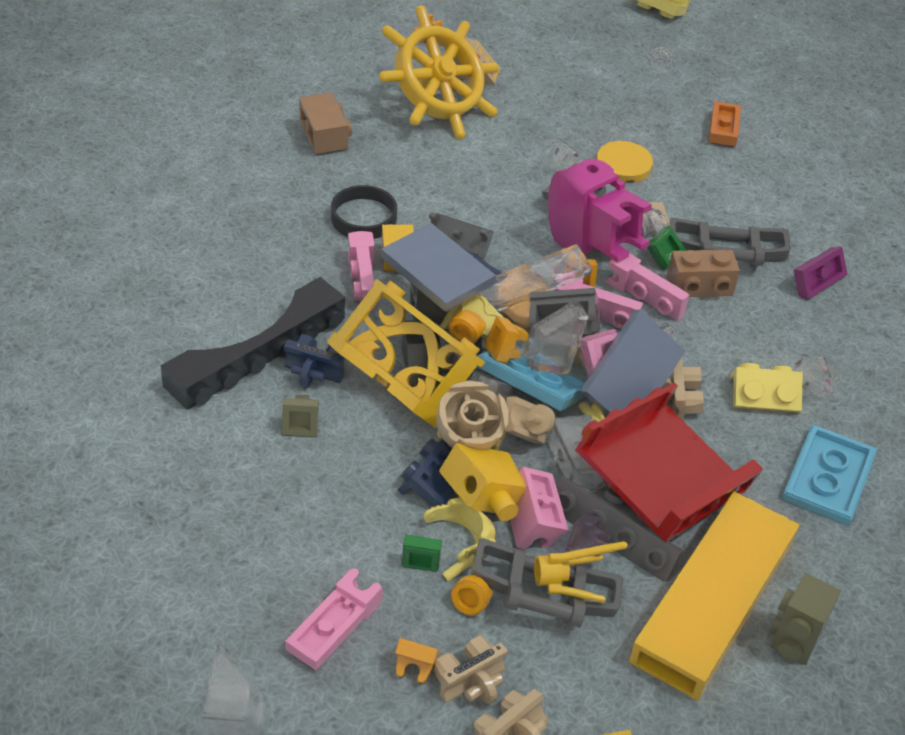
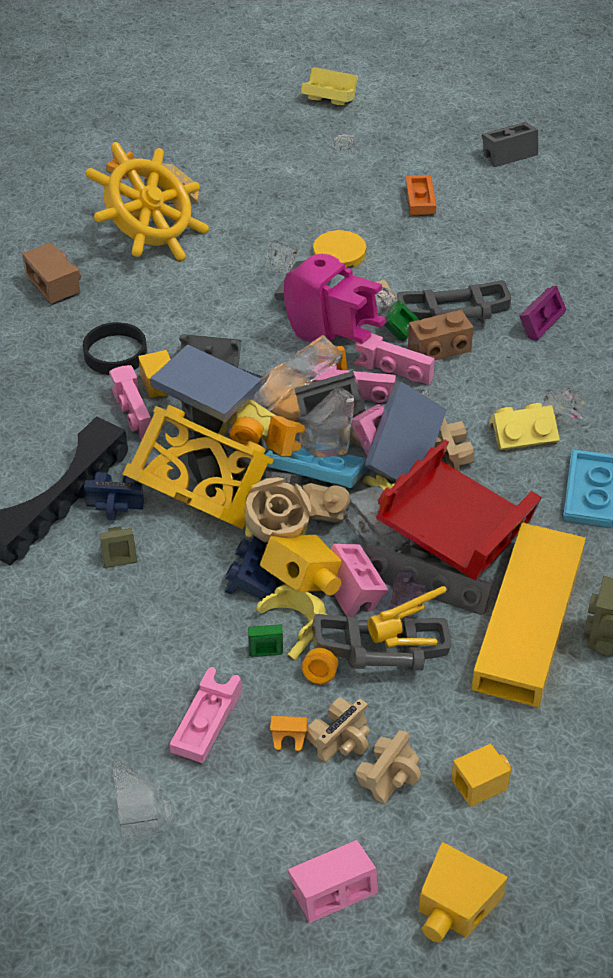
camera: 10 degrees left, 0 degrees up
(834, 91) = (510, 144): none -> dark grey hinge

